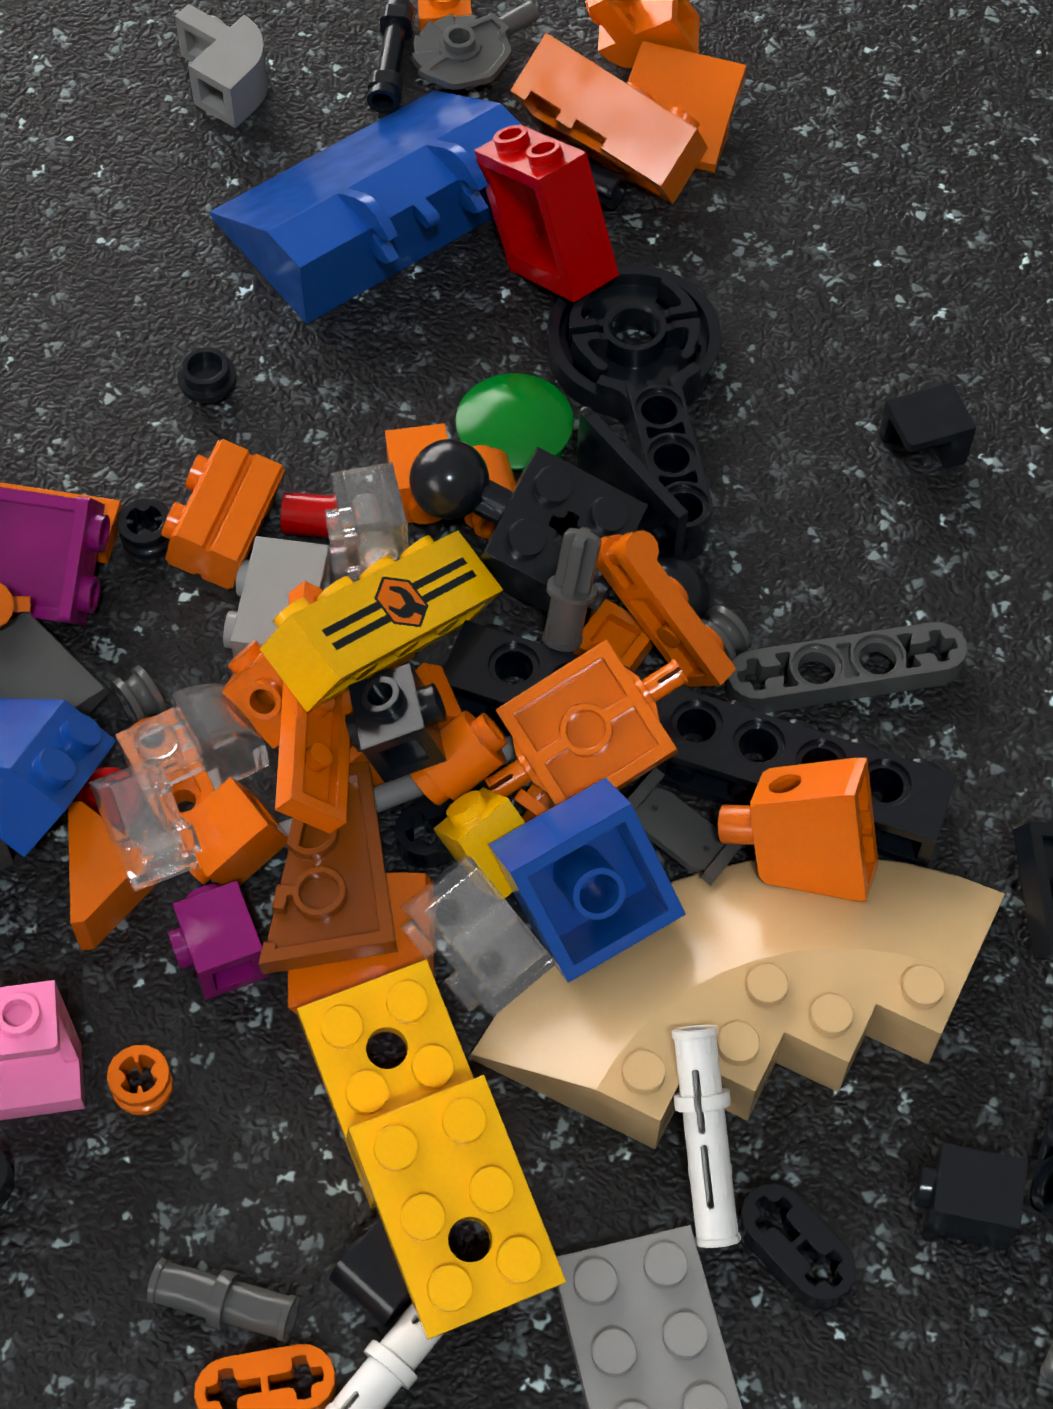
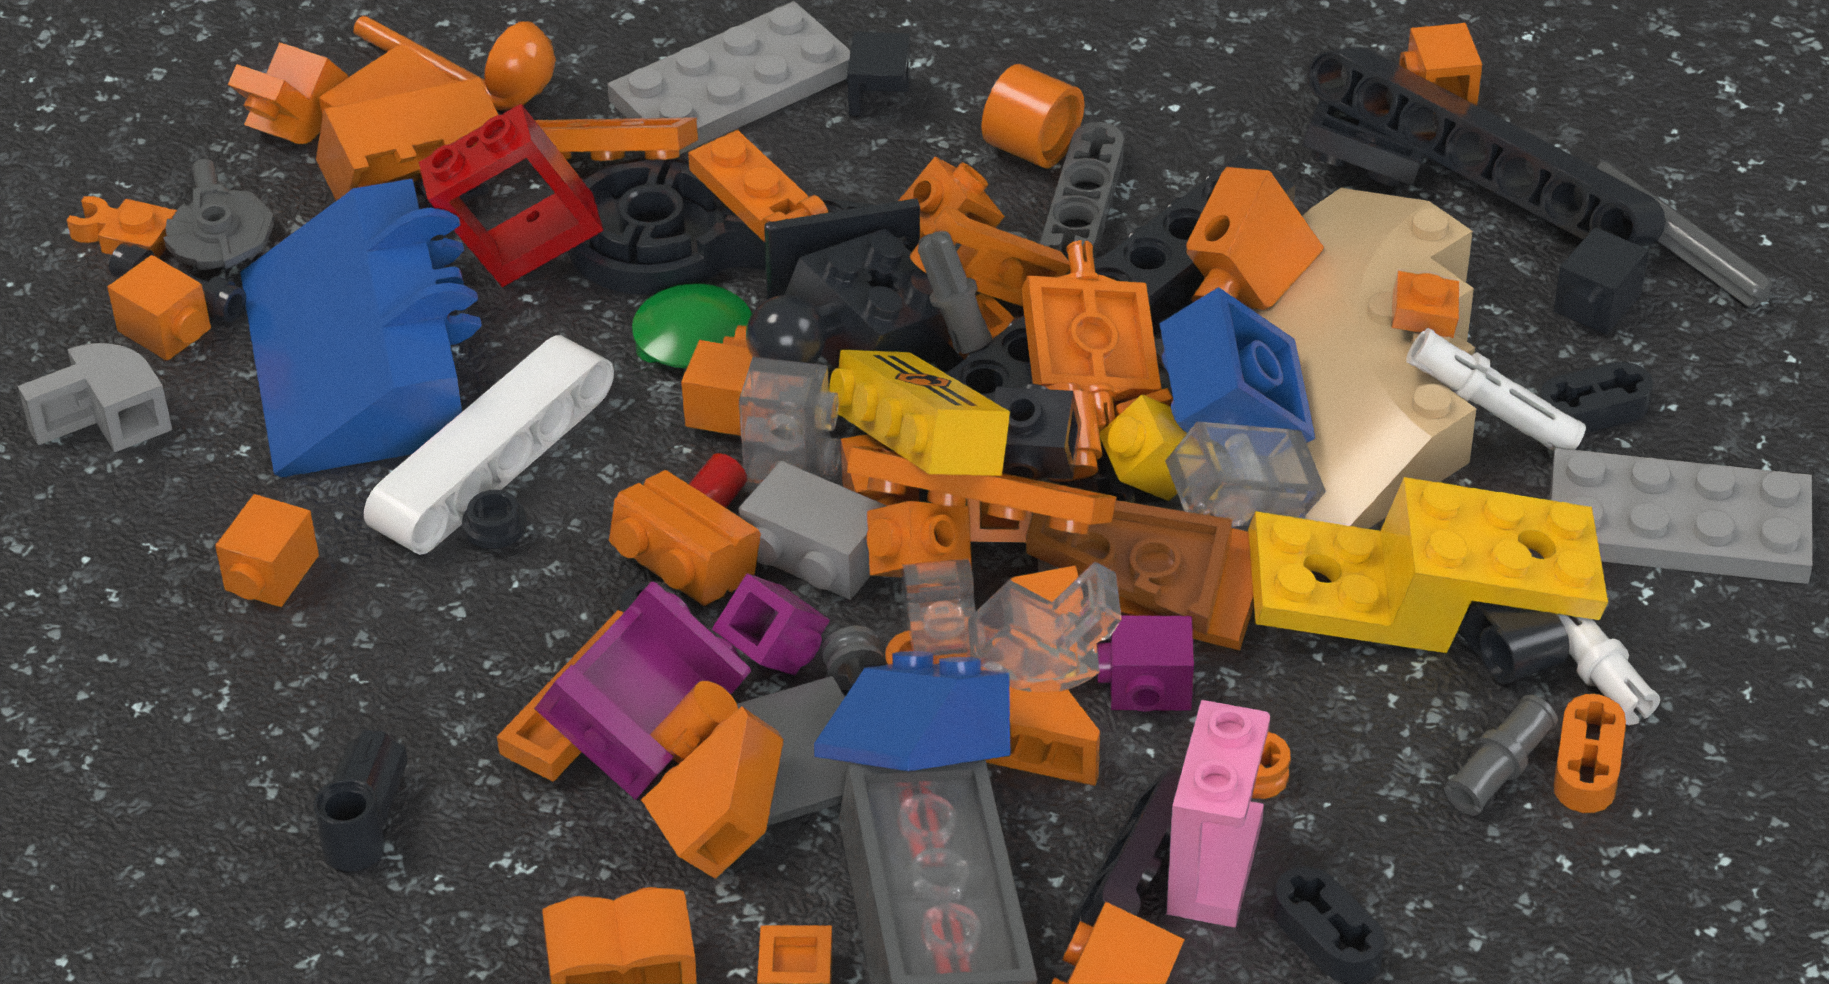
camera: 65 degrees left, 15 degrees down
(96, 239) = (267, 550): none -> orange brick
(133, 617) = (771, 625): none -> magenta brick
(293, 334) = (488, 443): none -> white beam
(344, 53) = (159, 307): none -> orange brick
(668, 388) = (750, 182): none -> orange plate
(713, 258) = (612, 137): none -> orange plate
(754, 556) = (954, 187): none -> orange brick
(763, 151) = (515, 67): none -> orange piece
(772, 1018) = (1424, 303): none -> orange plate
(868, 321) = (736, 74): none -> light grey plate
(927, 574) = (1032, 115): none -> orange piece

